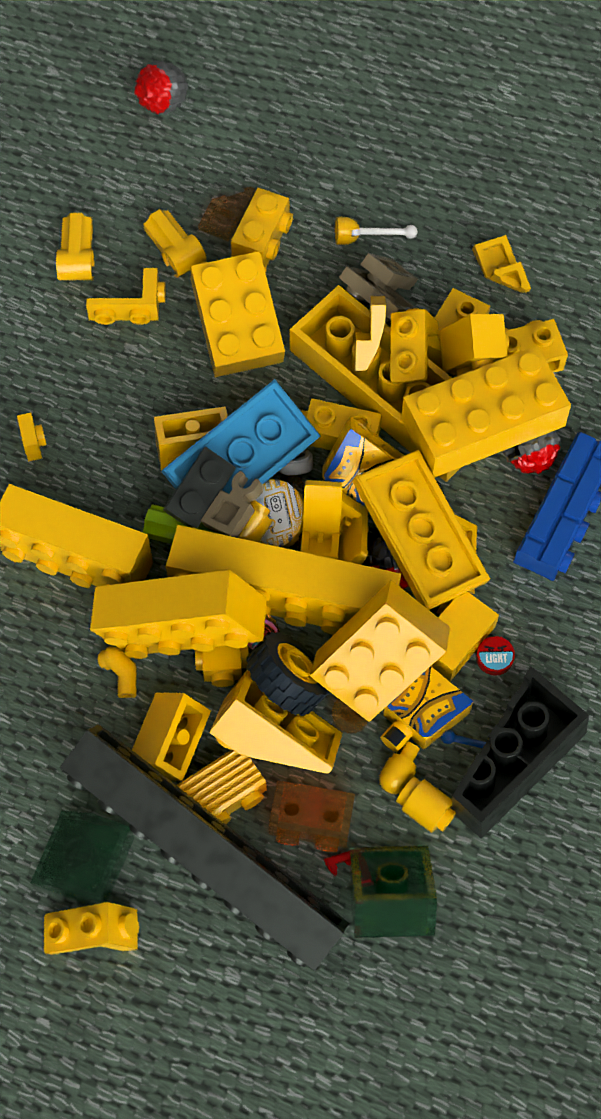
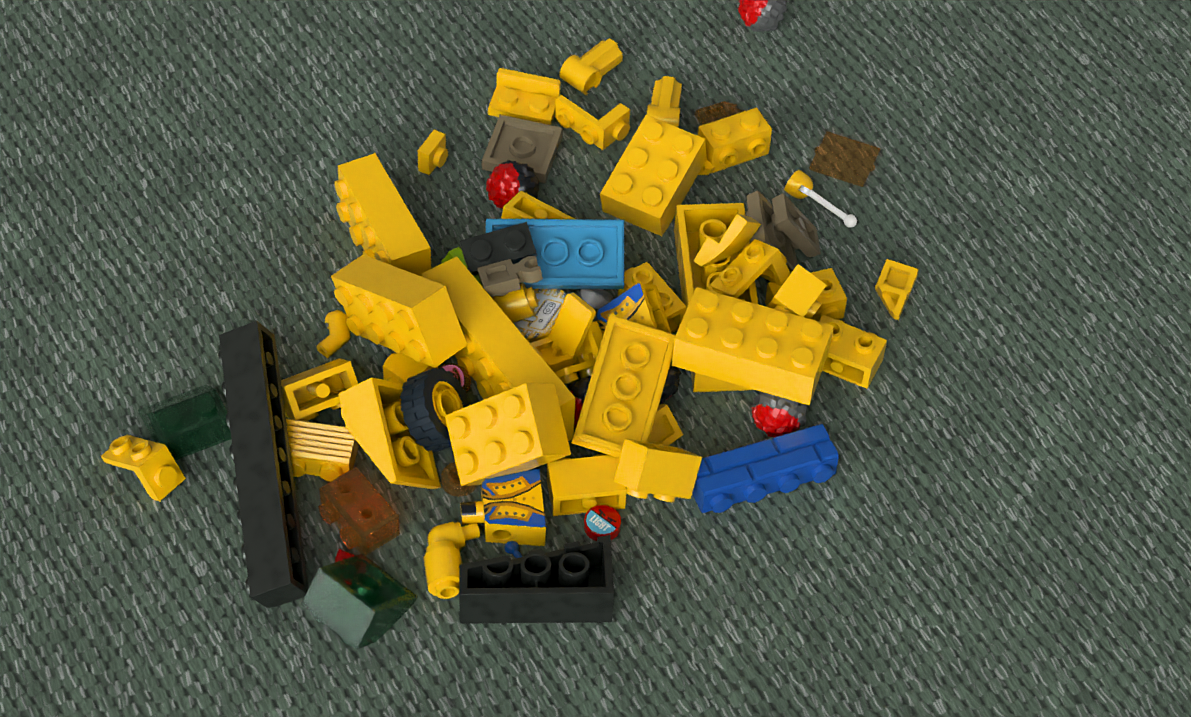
camera: 40 degrees right, 15 degrees down
(51, 323) = (524, 96): none -> yellow bracket
(97, 372) = (524, 143): none -> dark tan plate
(131, 415) = (509, 180): none -> red piece
(351, 178) = (844, 159): none -> clear orange piece
(510, 579) = (657, 470): none -> yellow brick

